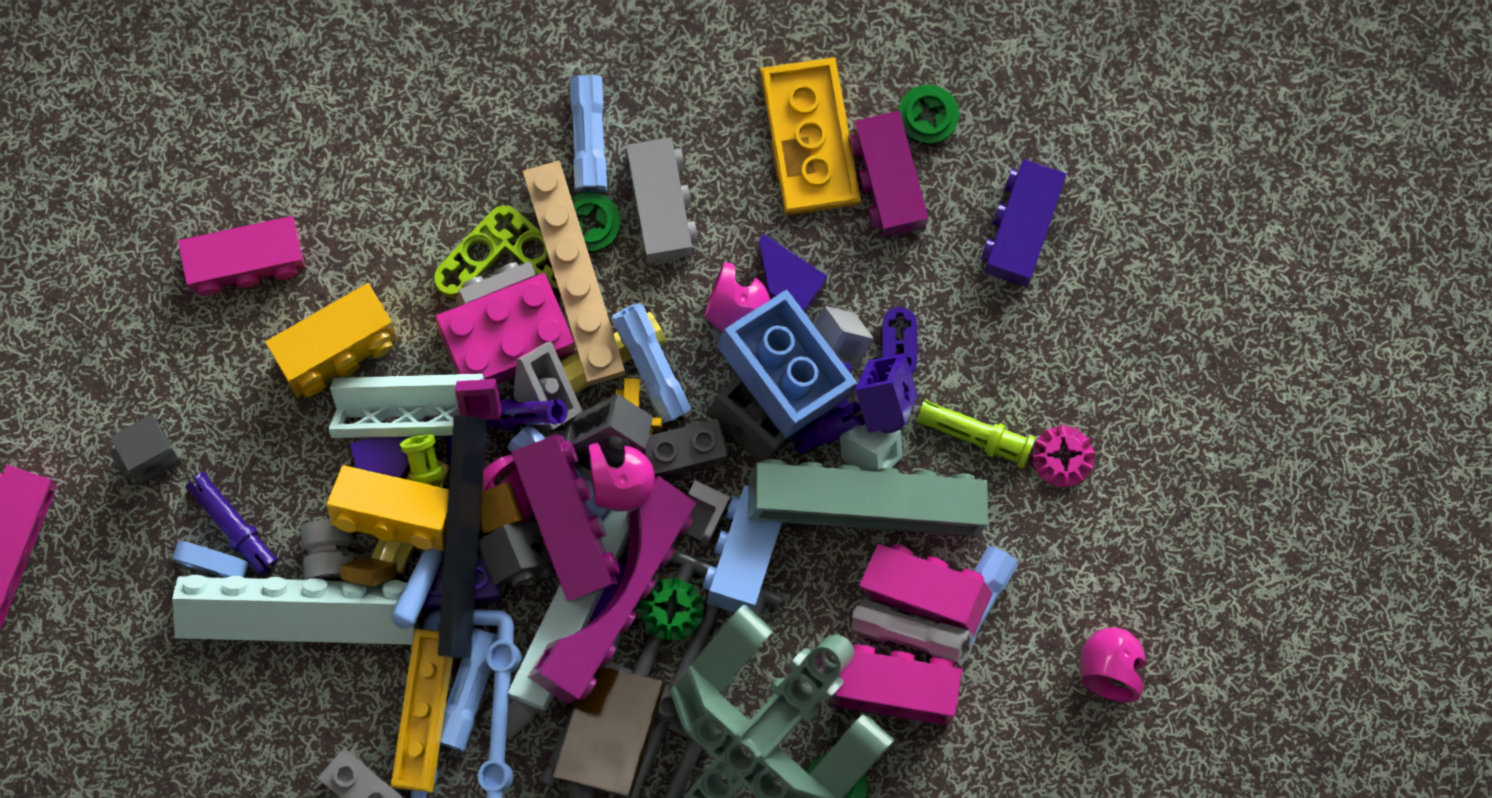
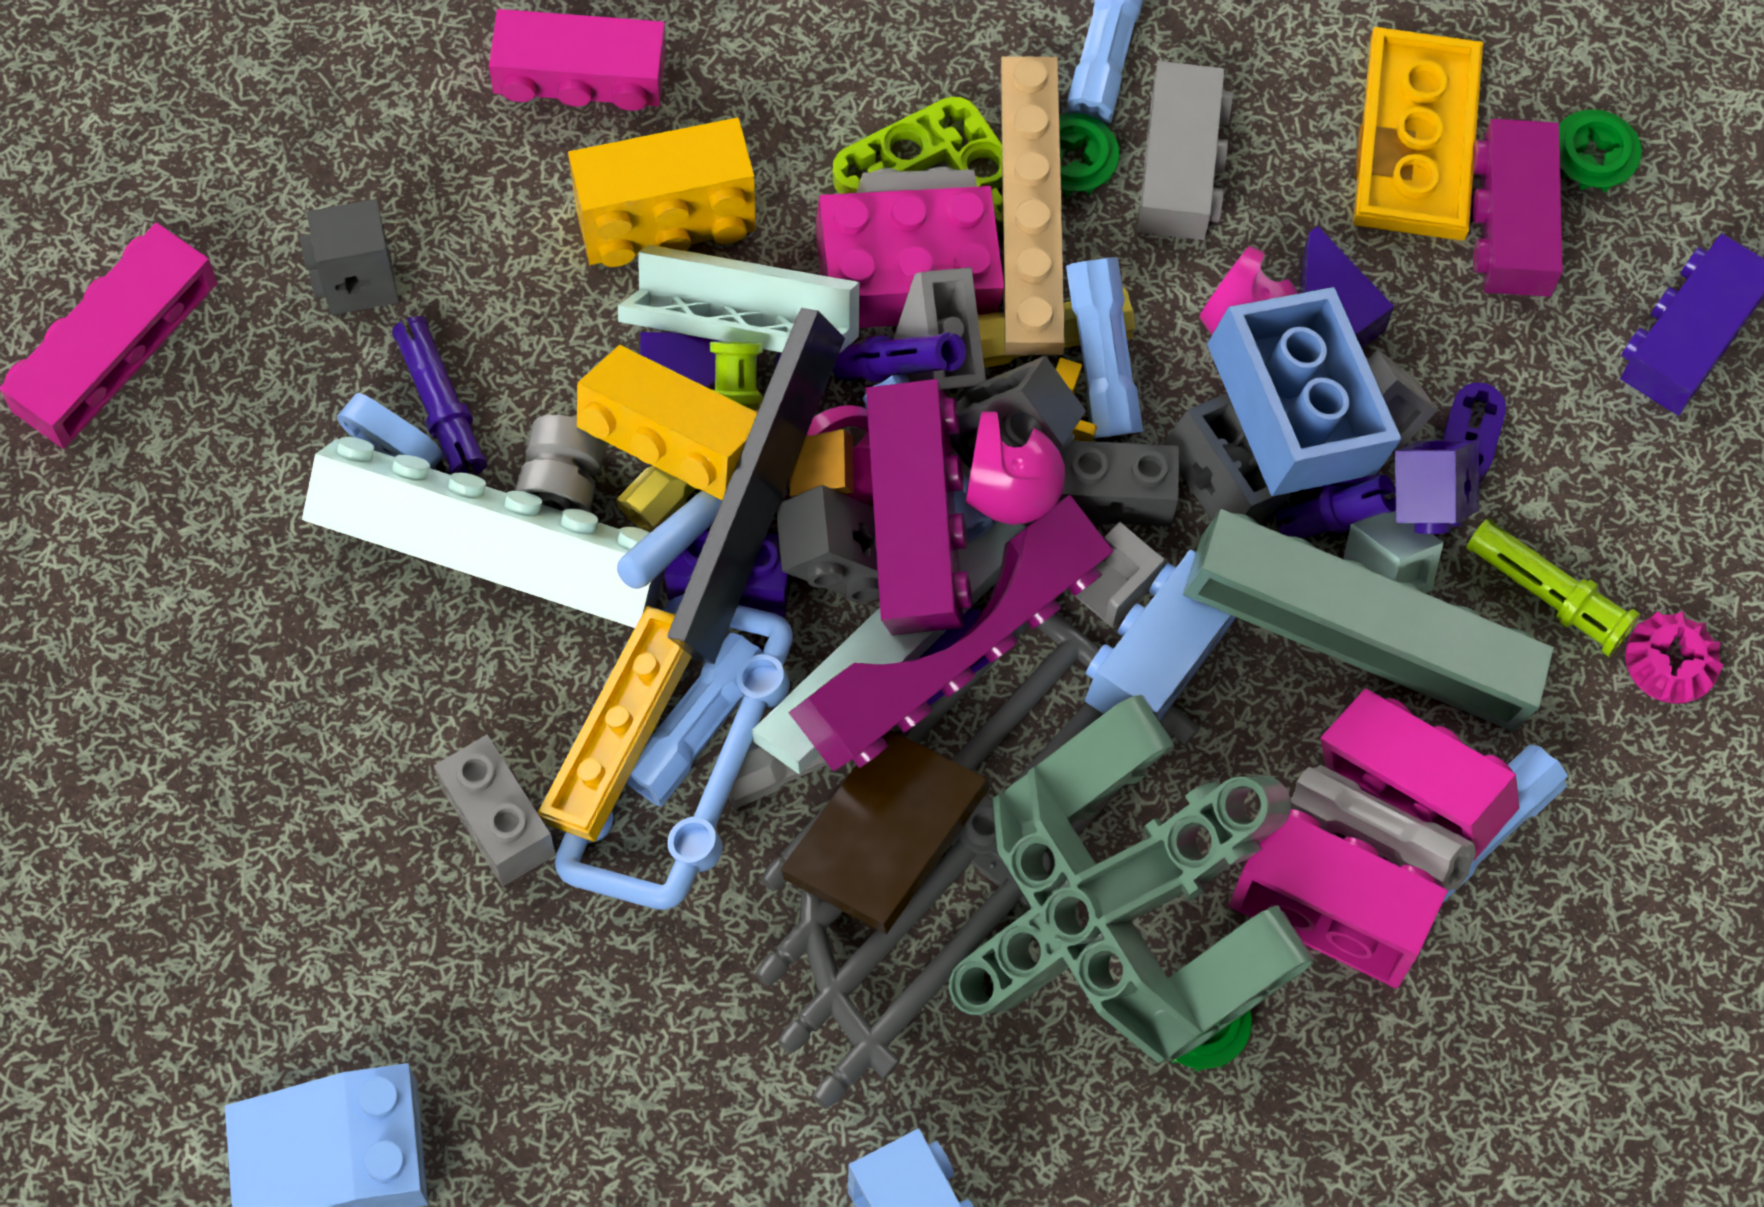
camera: 20 degrees right, 10 degrees down
(368, 571) = (607, 505): pearl gold tile -> none
(478, 398) = (846, 305): magenta plate -> none
(684, 623) = (1041, 716): green gear -> none
(1113, 655) = (1688, 952): dark pink helmet -> none

